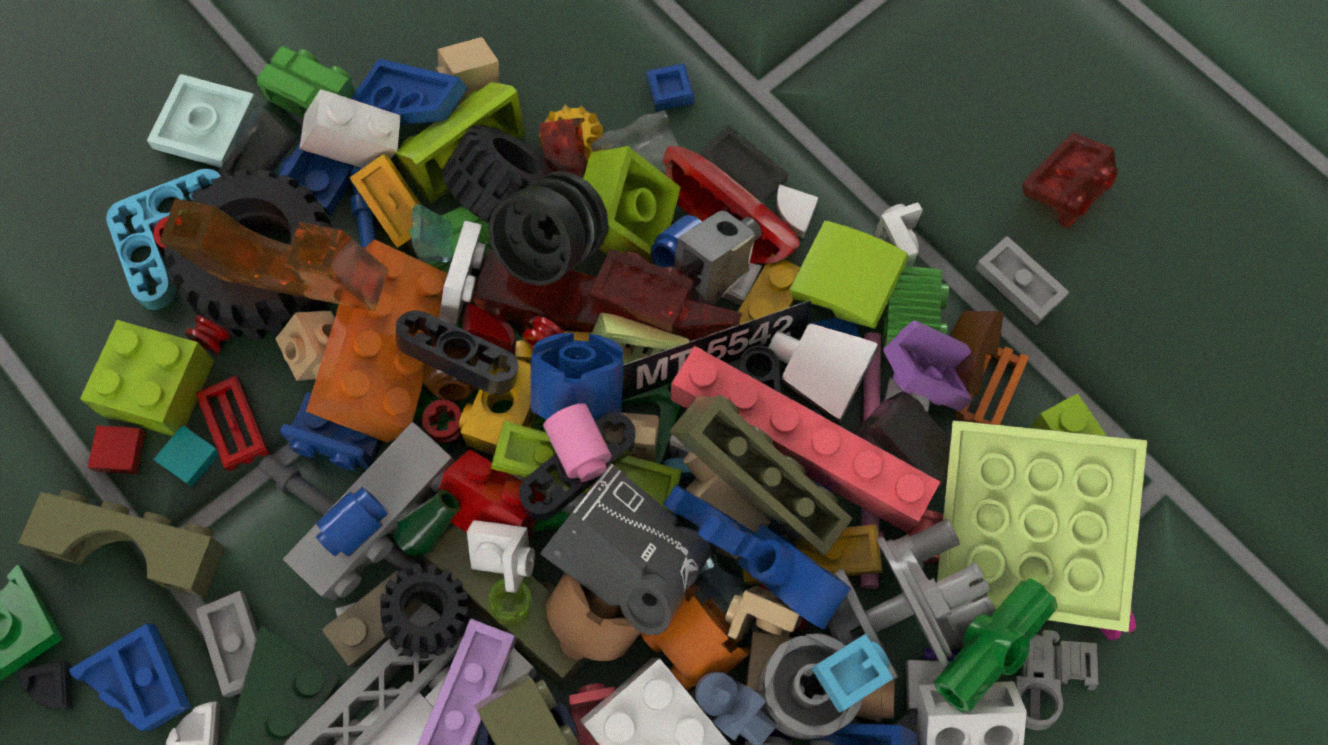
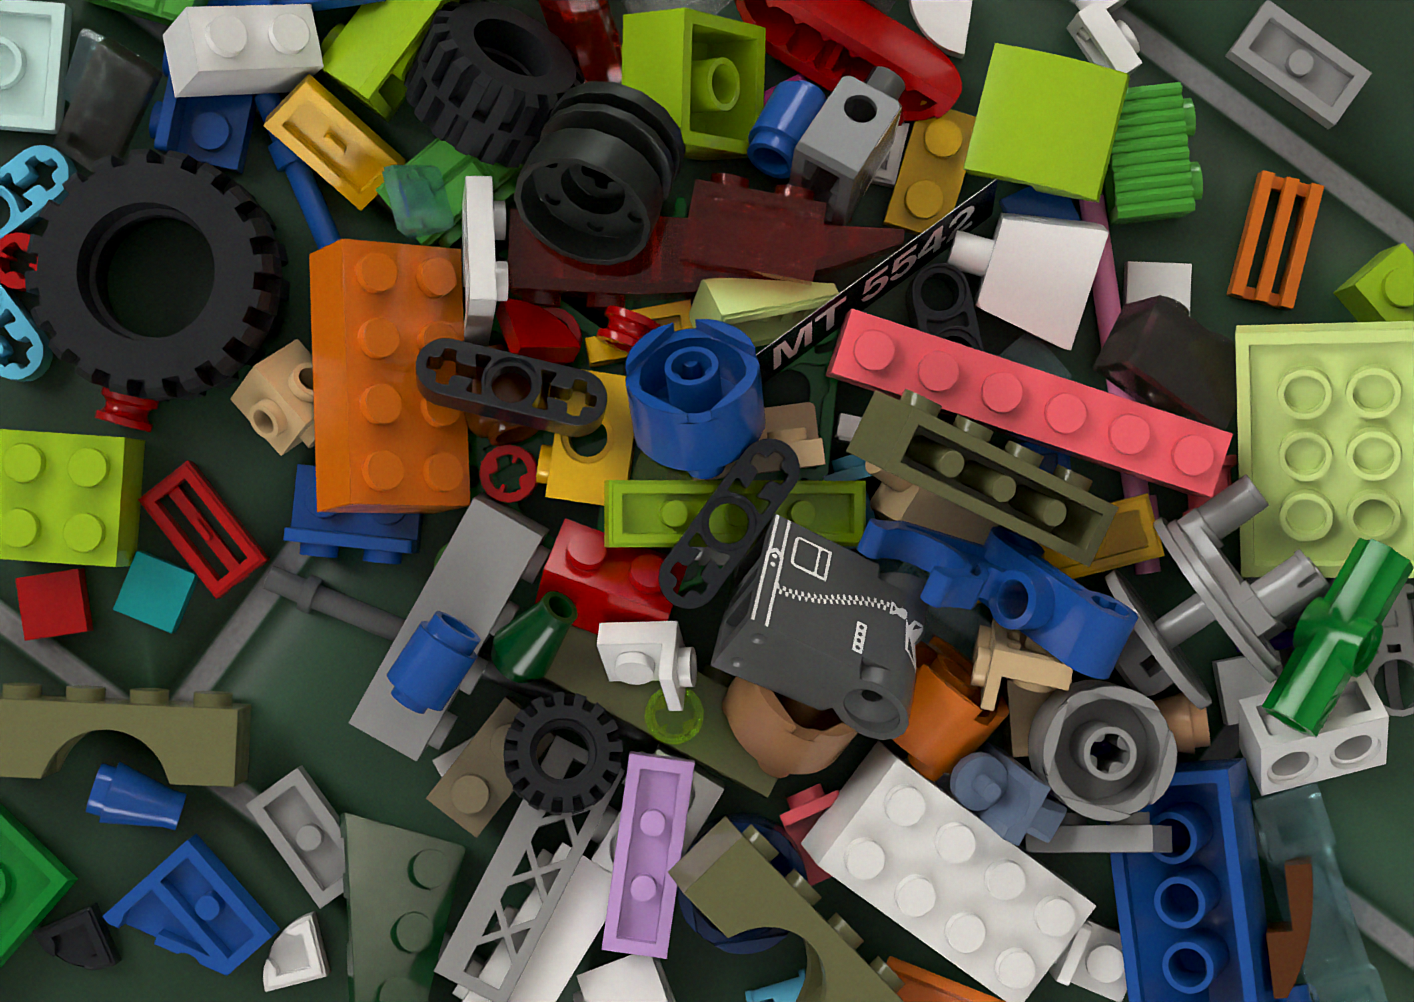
camera: 10 degrees left, 20 degrees up
(120, 589) = (133, 798): none -> blue cone
(317, 264) = (272, 321): clear orange arch -> none
(578, 442) = (728, 505): bright pink brick -> none
(853, 672) = (1161, 732): medium azure bracket -> none
(926, 365) = (1183, 253): medium lavender bracket -> none
(982, 334) = (1231, 210): reddish brown slope -> none

